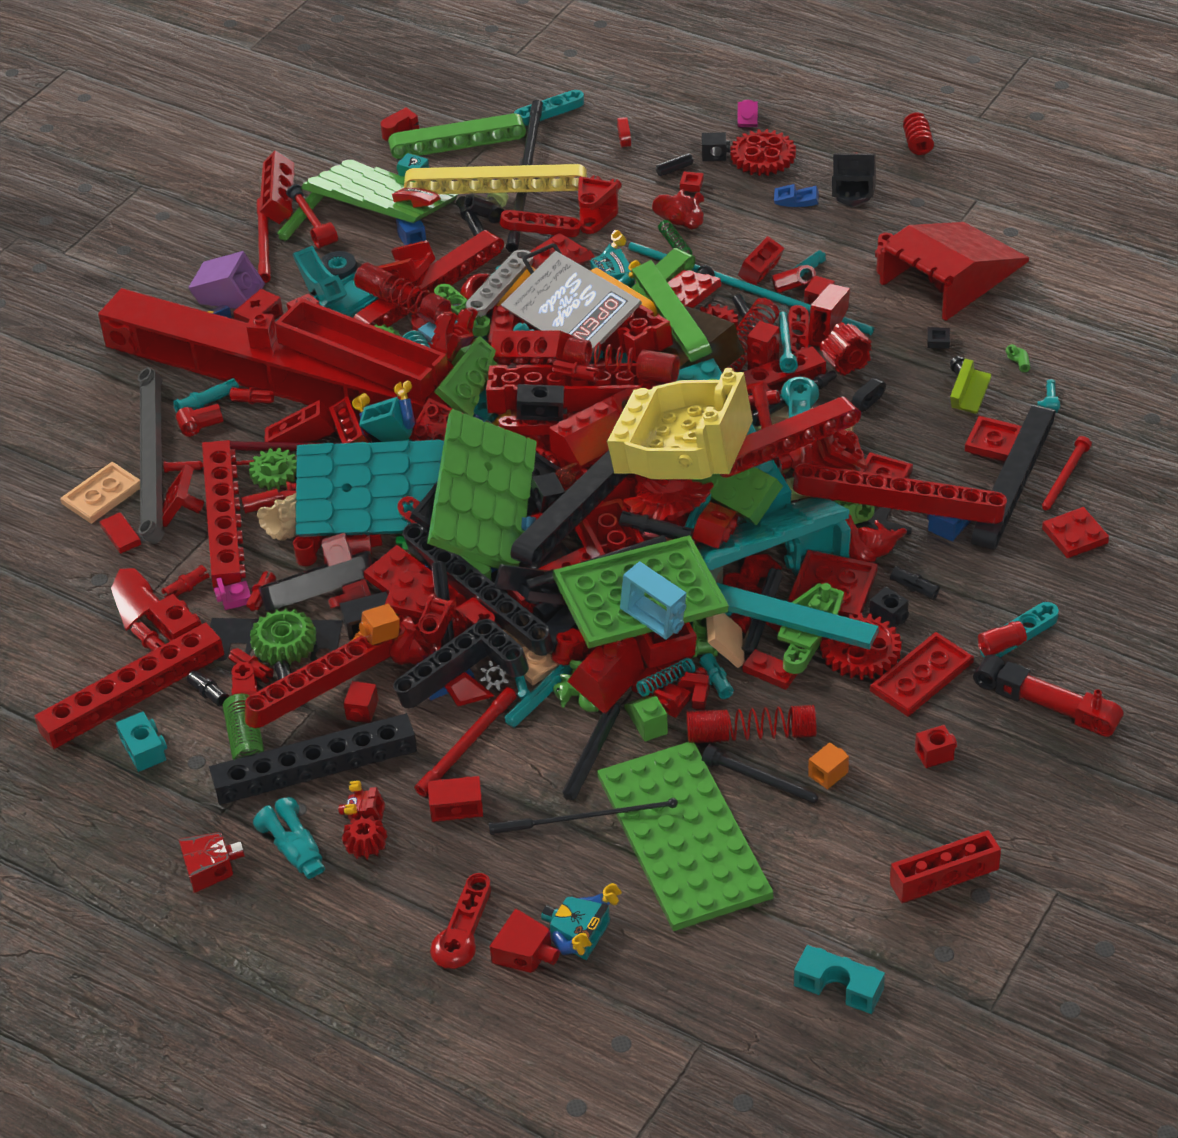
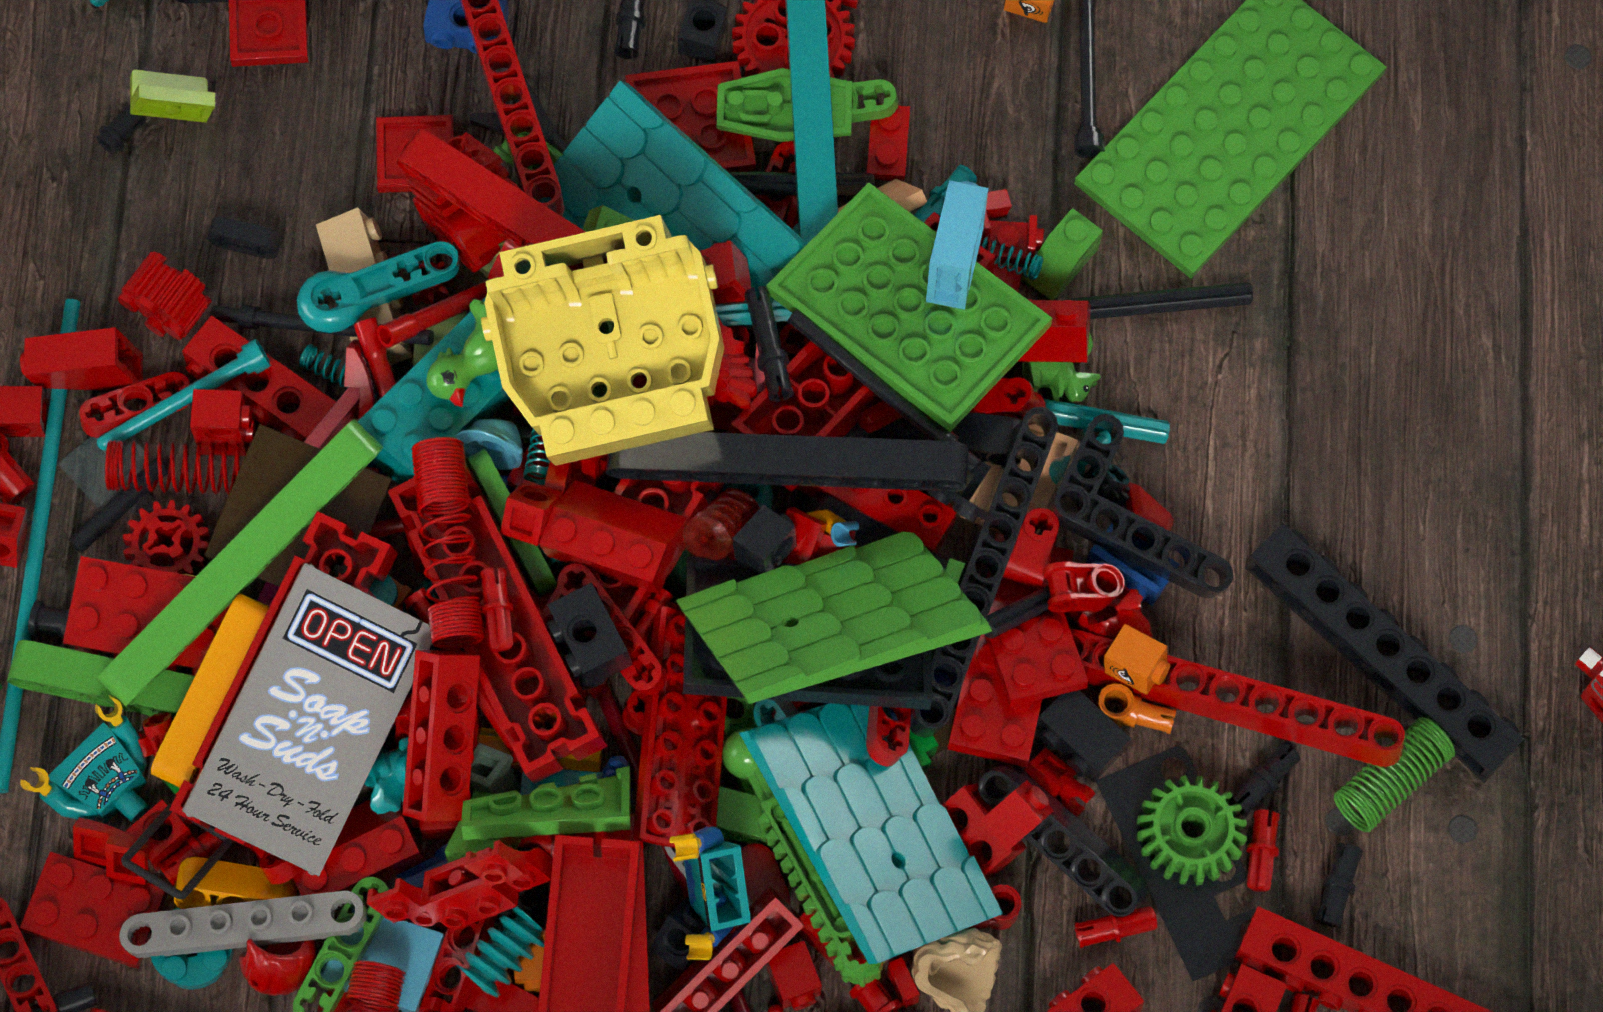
camera: 125 degrees left, 25 degrees up
(141, 741) = (1503, 897): teal brick -> none
(232, 595) = (1141, 967): dark pink bracket -> none
(243, 680) = (1316, 825): red piece -> none
(297, 845) = (1535, 586): teal piece -> none
(361, 702) = (1250, 645): red brick -> none
(363, 803) = (1426, 539): red piece -> none
(364, 837) = (1456, 505): red gear -> none
(455, 798) = (1343, 425): red brick -> none
(462, 926) = (1530, 315): red beam -> none
(498, 706) = (1316, 480): red piece -> none
(523, 944) = (1520, 222): red torso -> none
(529, 823) = (1327, 314): black piece -> none
(580, 921) = (1455, 169): torso -> none
(714, 725) = (1042, 148): red piece -> none
(869, 543) = (575, 88): red piece -> none
(938, 338) = (56, 191): black plate -> none
(1019, 356) = (48, 61): bright green arm -> none

